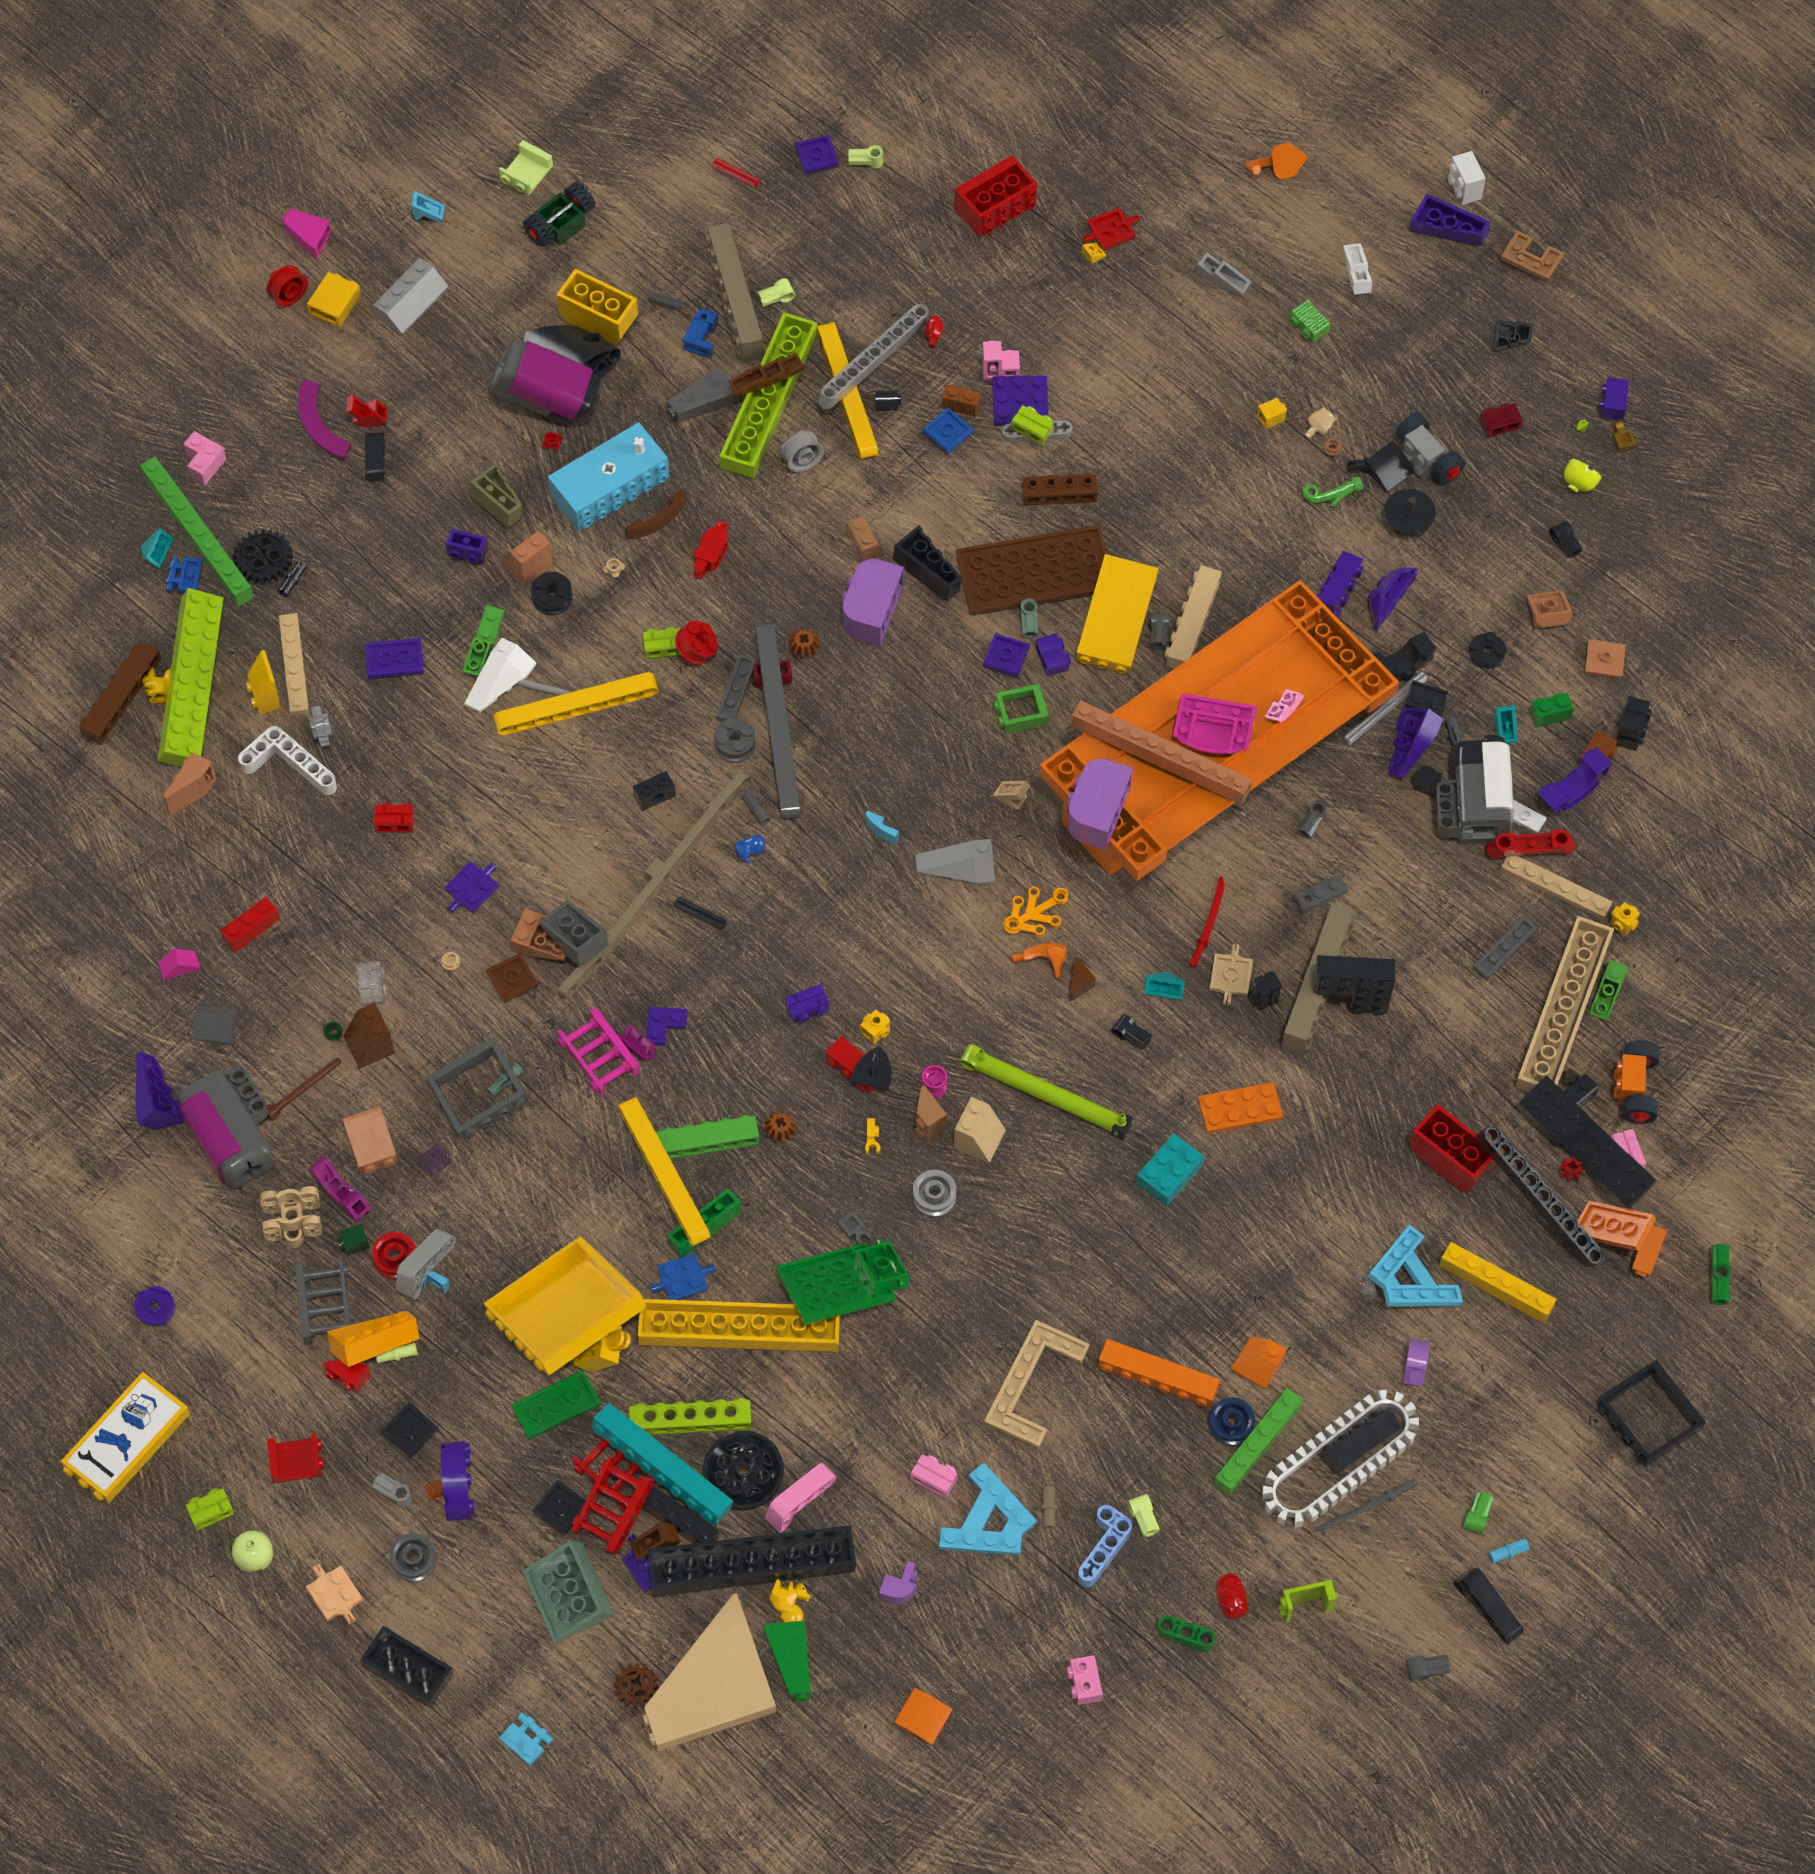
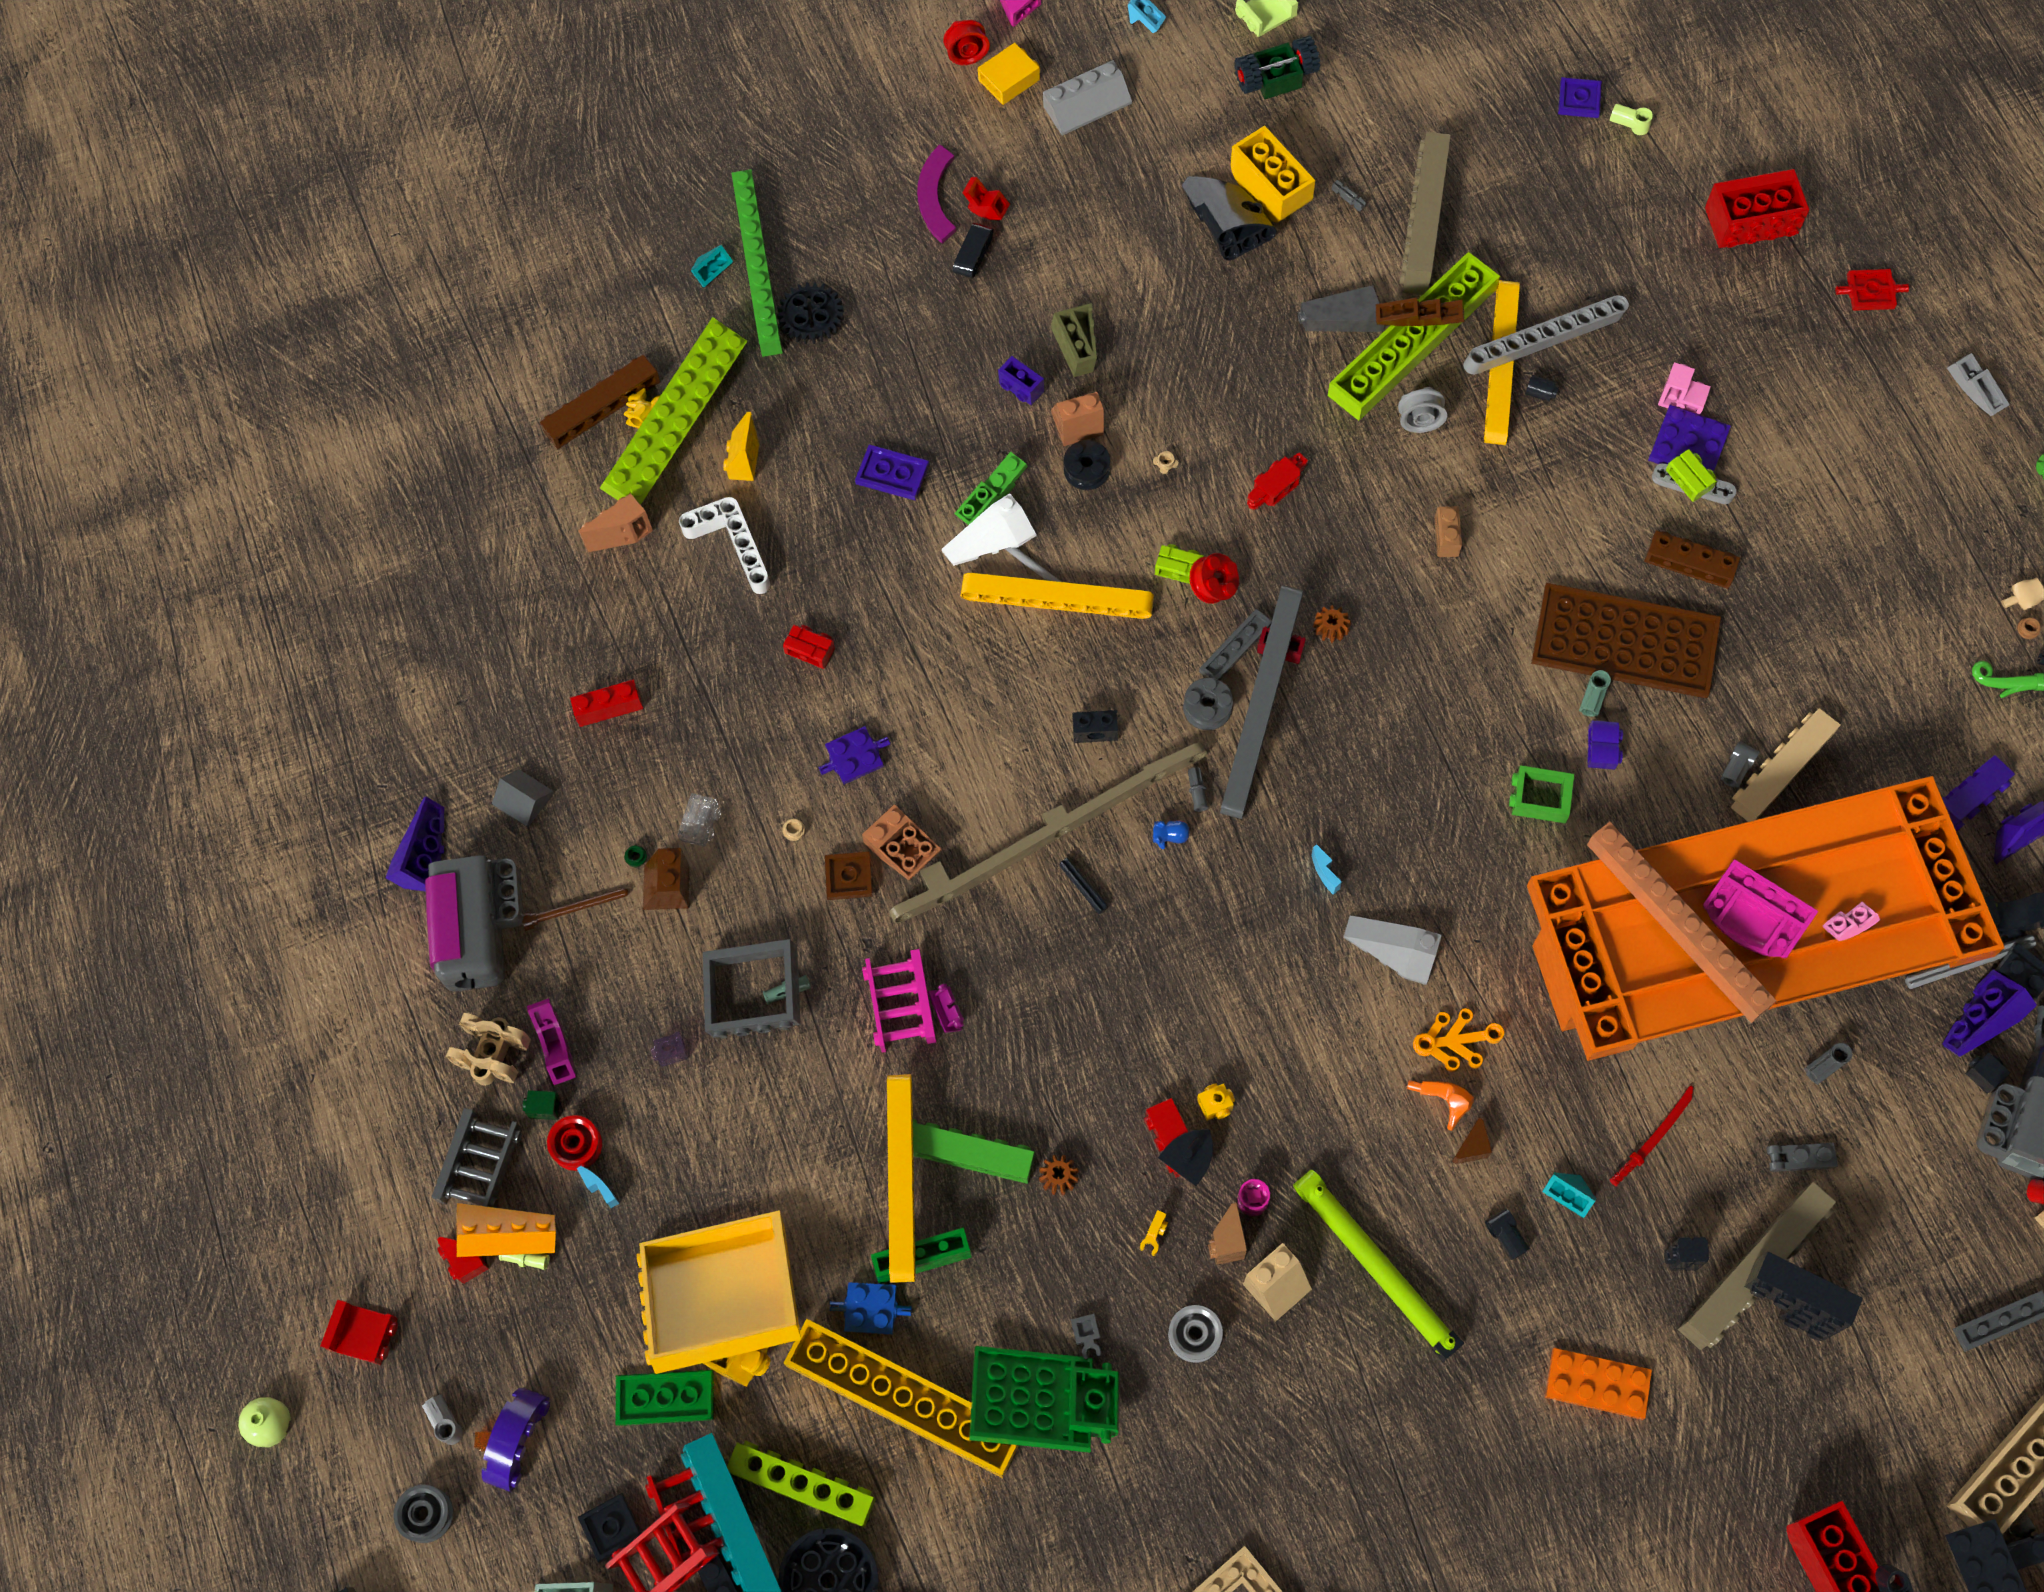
camera: 30 degrees right, 5 degrees up
(125, 1438) = (199, 1227): brick -> none
(154, 1317) = (317, 1091): dark purple plate -> none
(178, 963) = (517, 715): dark pink slope -> none
(190, 574) = (729, 305): blue plate -> none
(205, 457) = (803, 191): bright pink brick -> none
(209, 1508) = (243, 1351): lime brick -> none
(292, 579) = (829, 348): black pin -> none
(293, 664) = (788, 439): tan plate -> none
(320, 726) = (778, 516): light grey gear -> none
(334, 1593) = (323, 1514): light nougat plate -> none
(370, 1141) = (610, 1000): nougat slope -> none
(410, 1430) = (495, 1356): black plate -> none
(422, 1261) = (598, 1164): light grey beam -> none
(545, 382) = (1179, 235): magenta piece -> none
(552, 436) = (1163, 296): red plate -> none
(575, 932) = (931, 855): dark grey slope -> none
(608, 477) = (1203, 361): medium azure piece -> none
(641, 529) = (1212, 431): reddish brown slope -> none
(662, 1019) = (984, 991): dark purple plate -> none
(698, 332) = (1369, 241): blue piece -> none
(736, 173) = (1484, 87): red axle -> none
(780, 291) = (1475, 229): yellowish green piece -> none
(807, 1004) = (1152, 1042): dark purple brick -> none
(871, 600) = (1427, 604): medium lavender brick -> none
(926, 562) = (1506, 587): black wedge -> none
(933, 330) = (1625, 330): red plant -> none
(948, 430) = (1594, 446): blue plate -> none
(961, 400) = (1623, 418): dark orange brick -> none
(1006, 655) = (1551, 725): dark purple plate -> none
(1012, 793) = (1490, 888): tan slope -> none
(1093, 252) = (1840, 308): yellow slope -> none
(1098, 801) = (1579, 952): medium lavender brick -> none
(1116, 614) = (1697, 727): yellow brick -> none
(1170, 1170) = (1481, 1427): teal brick -> none
(1231, 974) = (1654, 1213): tan plate -> none
(1271, 413) = (1973, 562): yellow brick -> none

